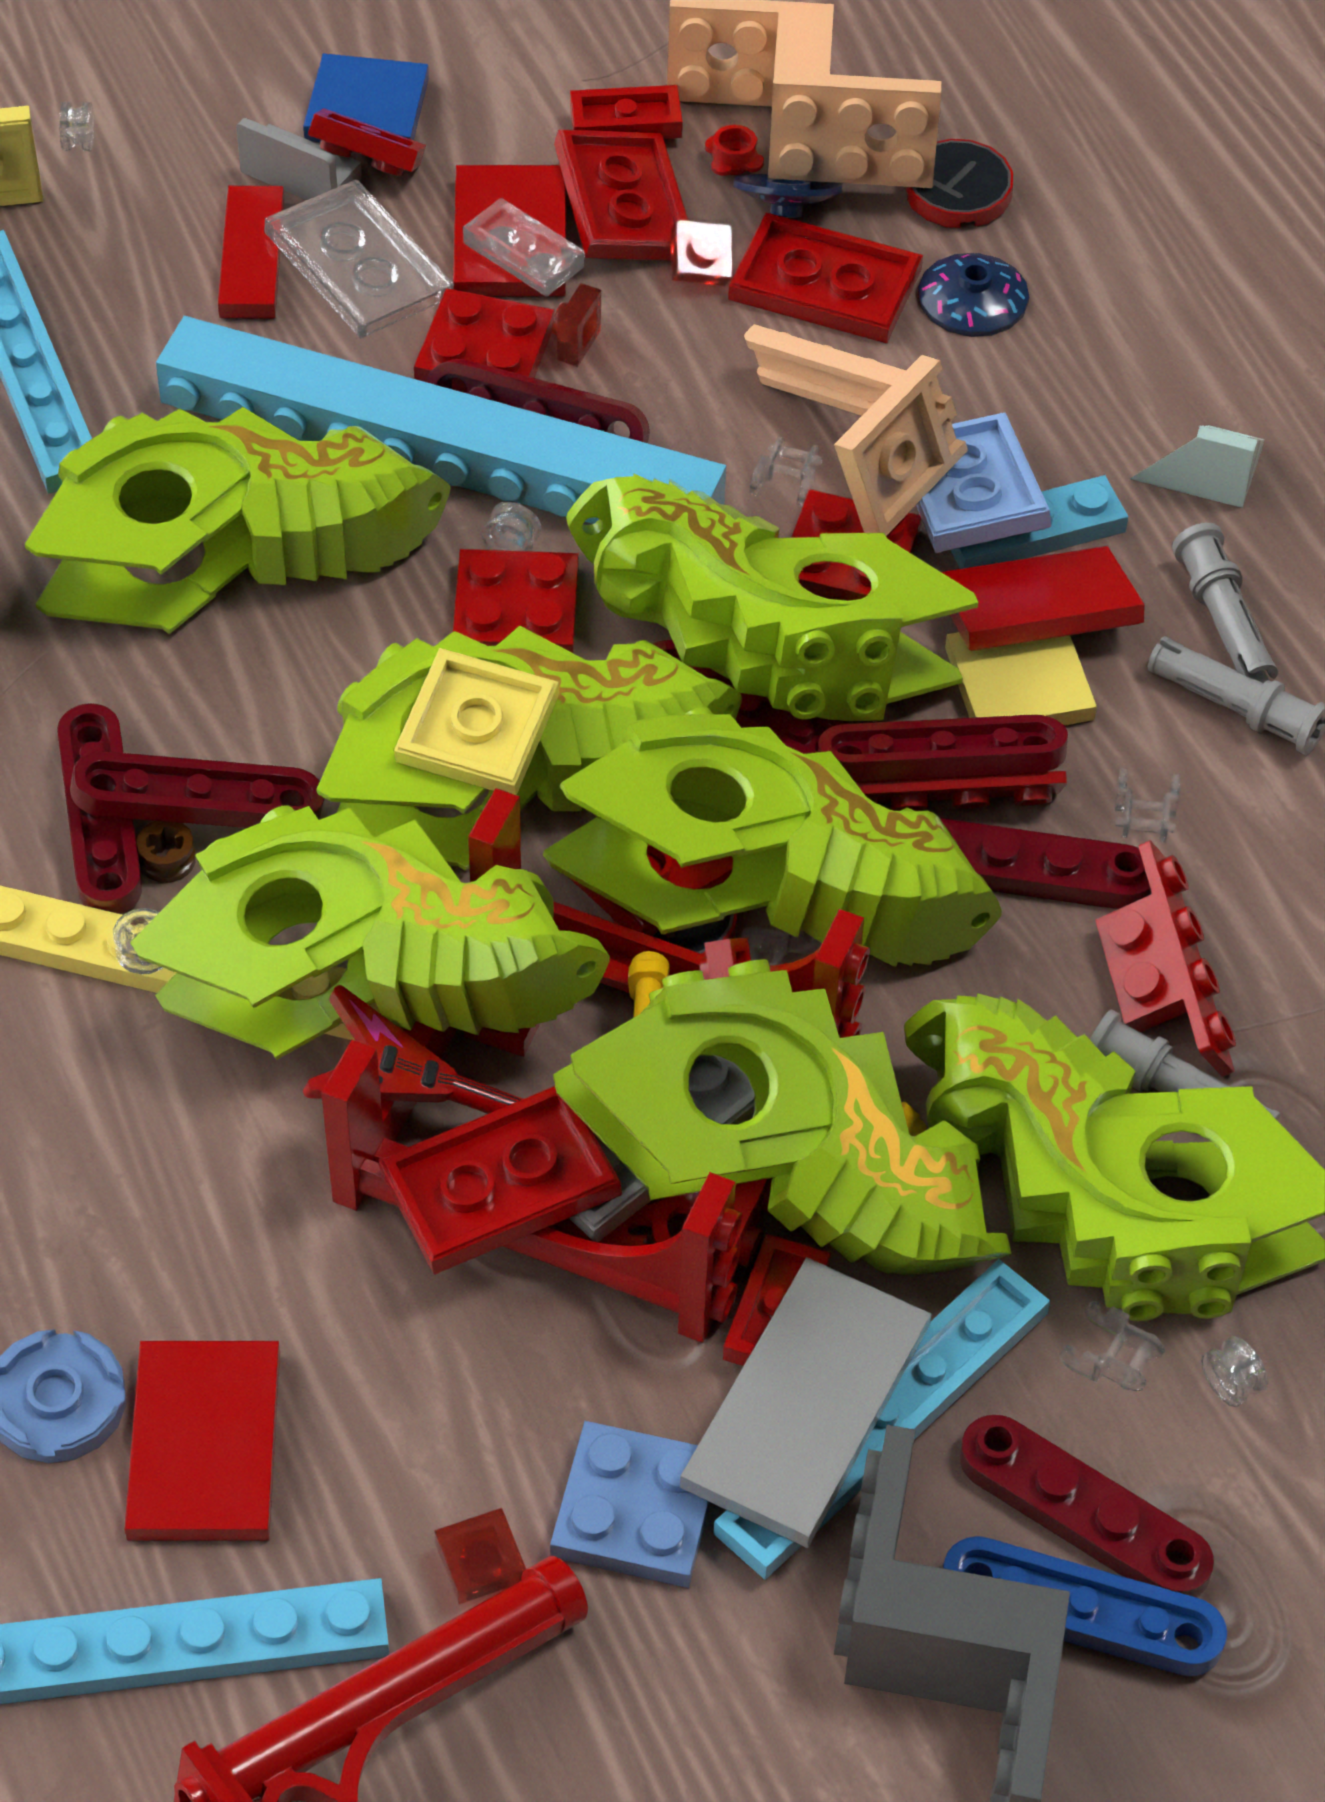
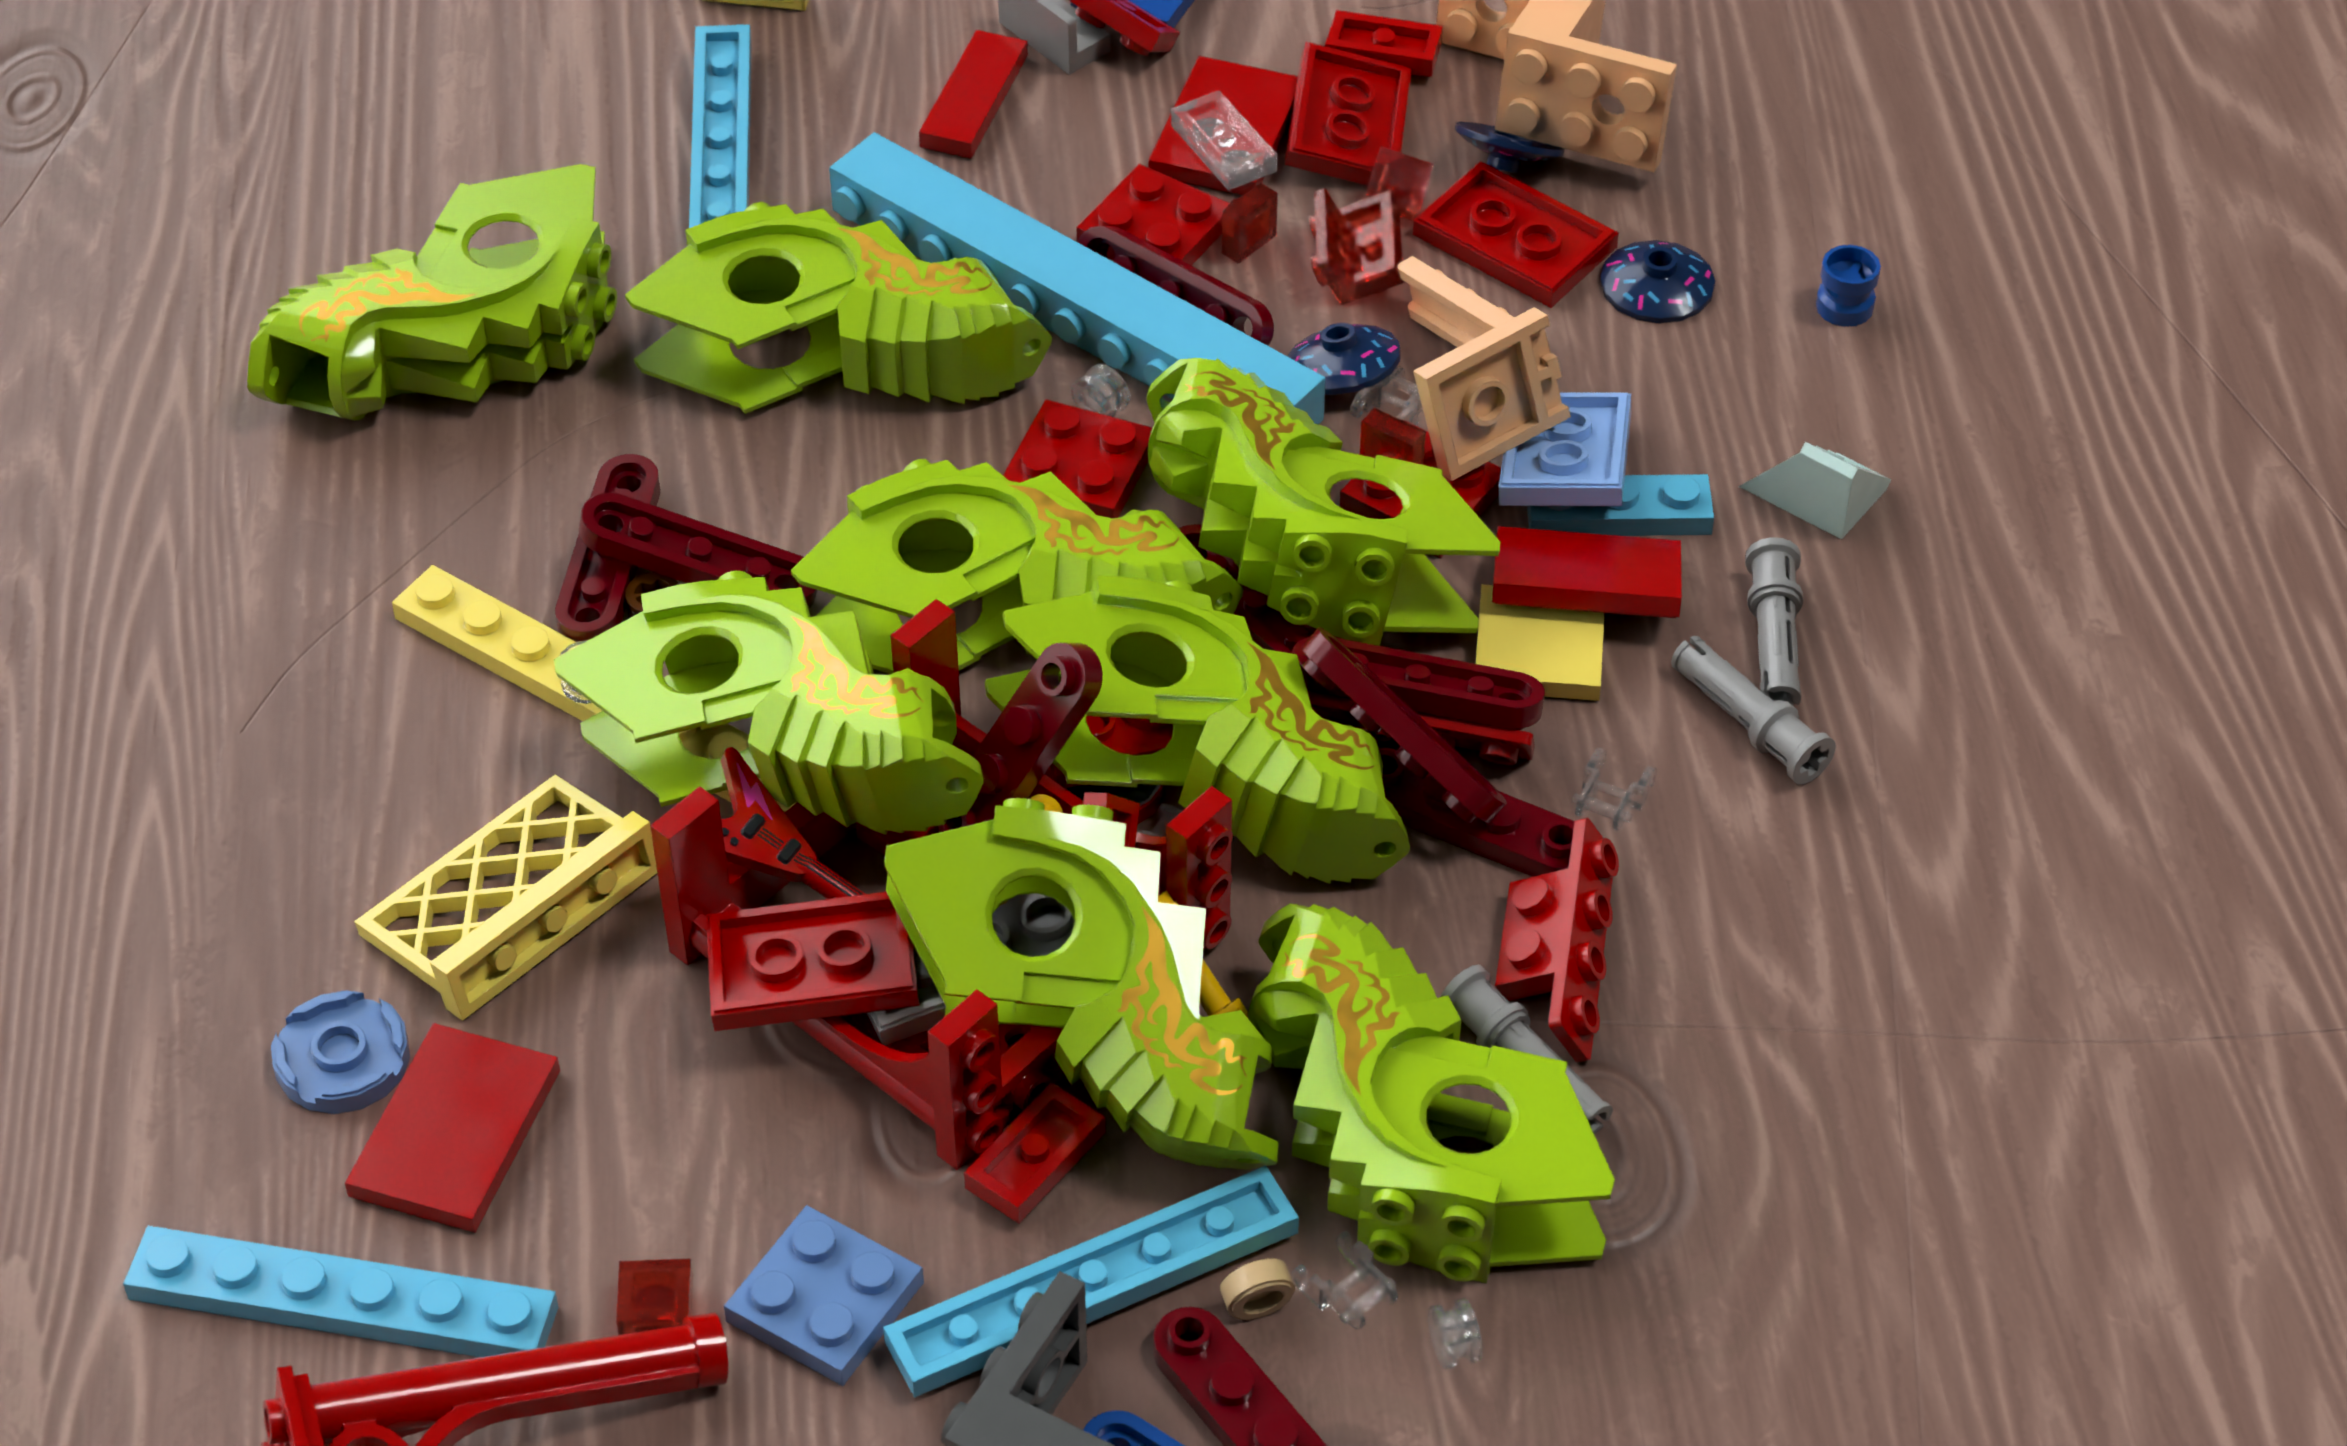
camera: 20 degrees right, 5 degrees down
(195, 1215) = (535, 916): none -> light yellow fence
(358, 258) = (1067, 119): clear tile -> none
(477, 722) = (962, 544): light yellow tile -> none
(629, 896) = (1033, 727): none -> dark red plate
(692, 324) = (1356, 245): none -> clear red bracket
(728, 433) = (1349, 356): none -> dark blue dish
(734, 151) = (1474, 98): red plate -> none
(805, 1402) = (982, 1258): light grey tile -> none
(819, 513) = (1391, 438): none -> clear red plate
(968, 185) = (1694, 177): tile -> none
(978, 812) = (1421, 746): none -> dark red plate
(1040, 1381) = (1257, 1289): none -> tan tile
(1151, 269) = (1848, 285): none -> blue wheel

